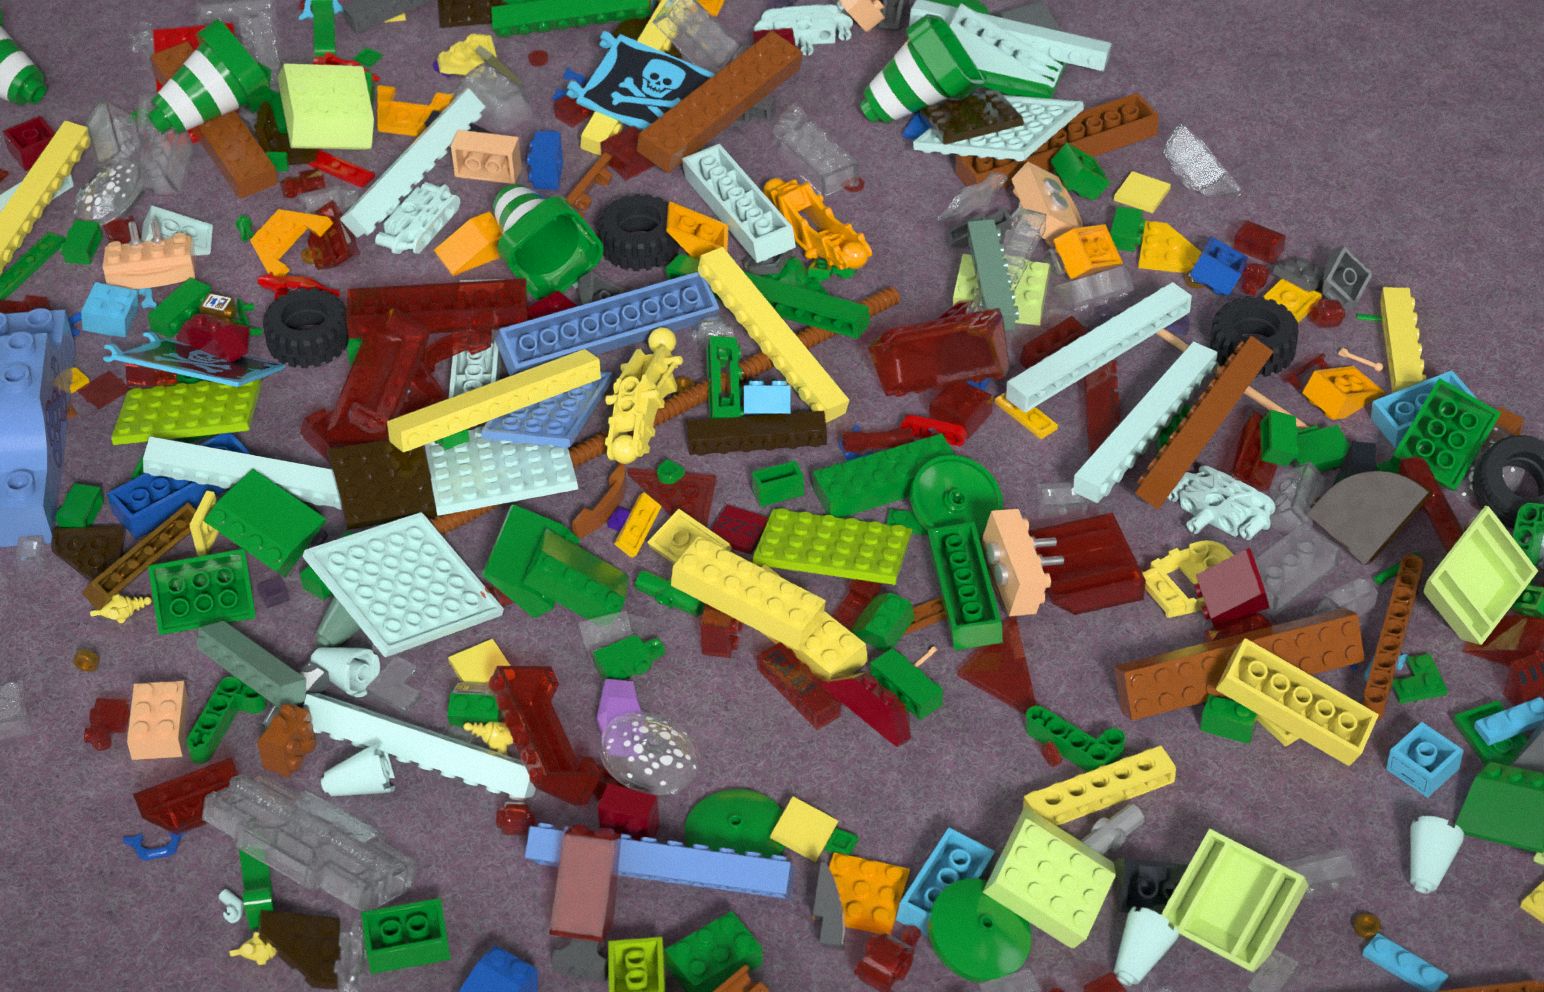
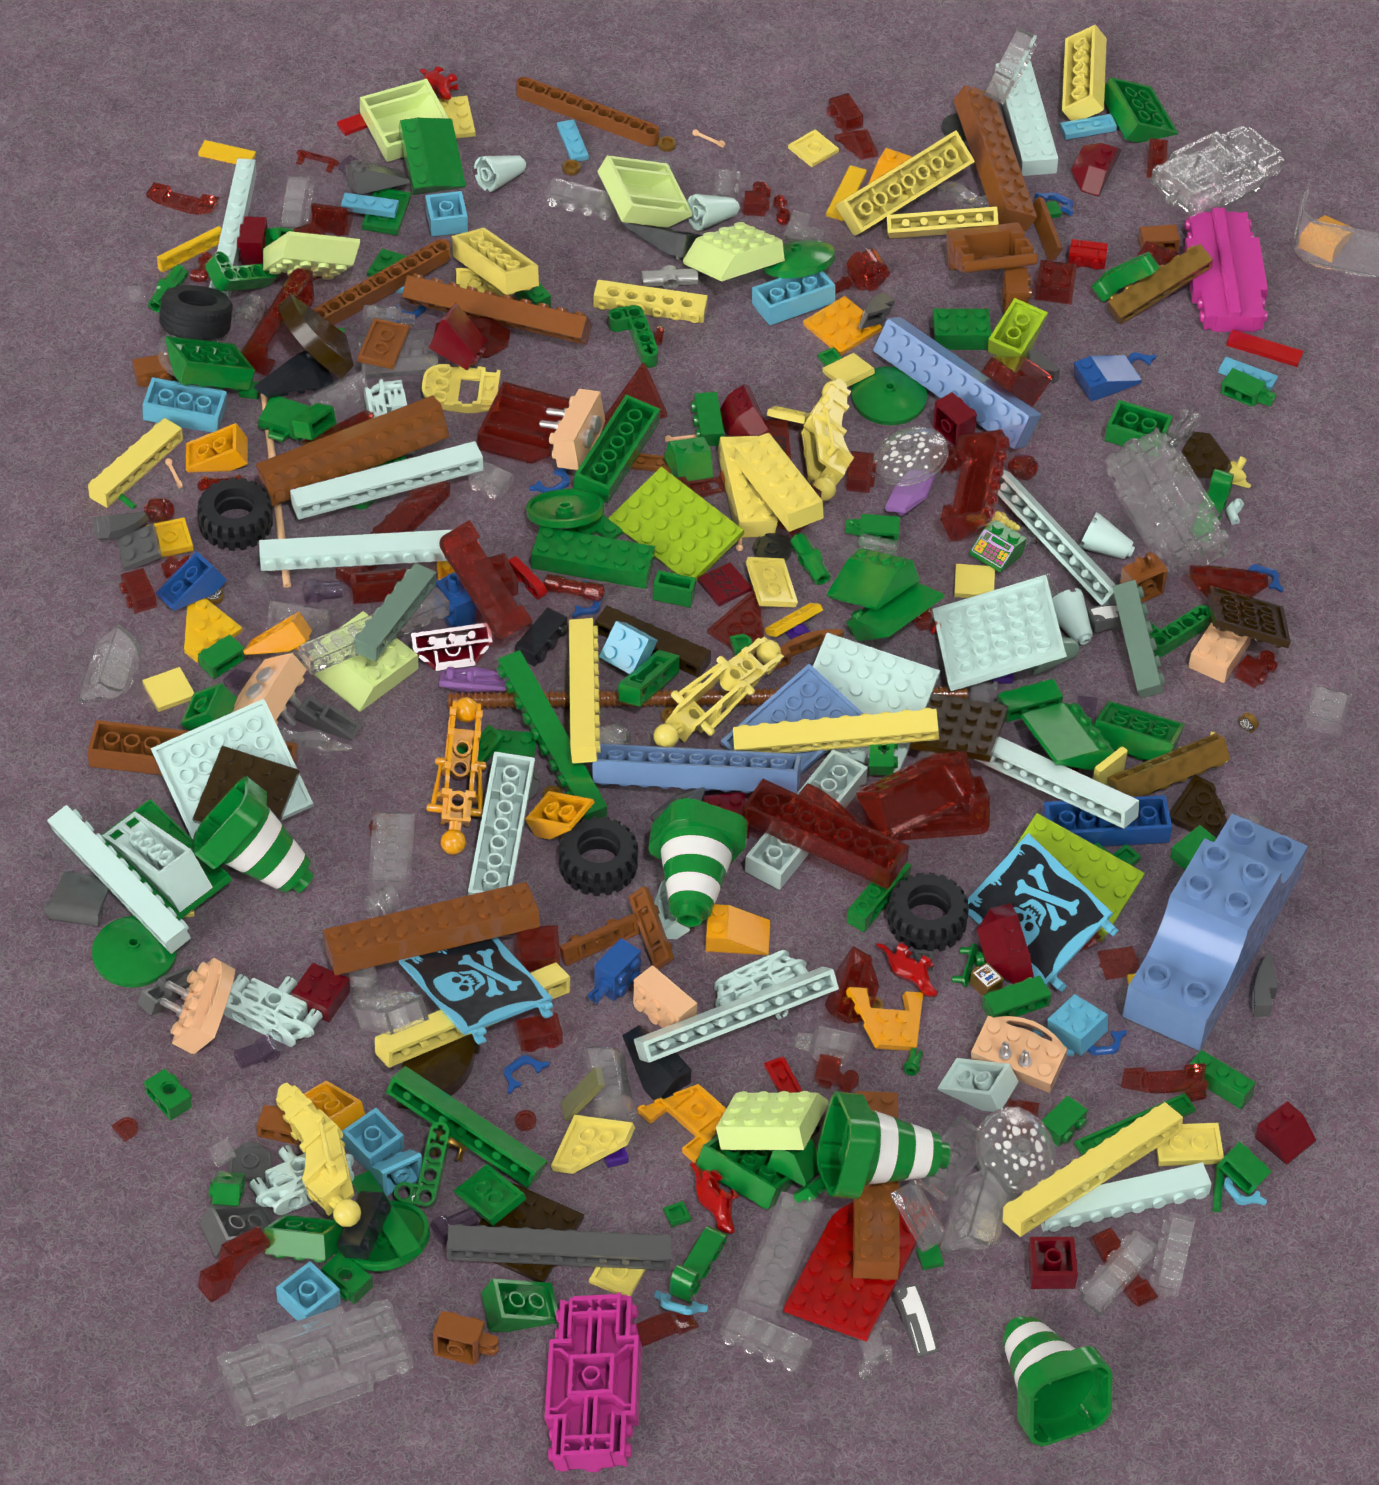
camera: 150 degrees left, 5 degrees up
(128, 72) = (915, 1320): none -> slope
(136, 745) = (1248, 617): none -> dark brown plate
(692, 712) = (860, 472): none -> clear red brick
(742, 695) = (824, 440): none -> light yellow piece
(822, 728) = (788, 414): none -> light yellow tile
(863, 385) = (542, 636): none -> black brick
(891, 313) = (471, 679): none -> medium lavender piece
(1091, 218) = (237, 679): none -> clear purple plate
(1304, 549) = (383, 343): none -> dark orange tile

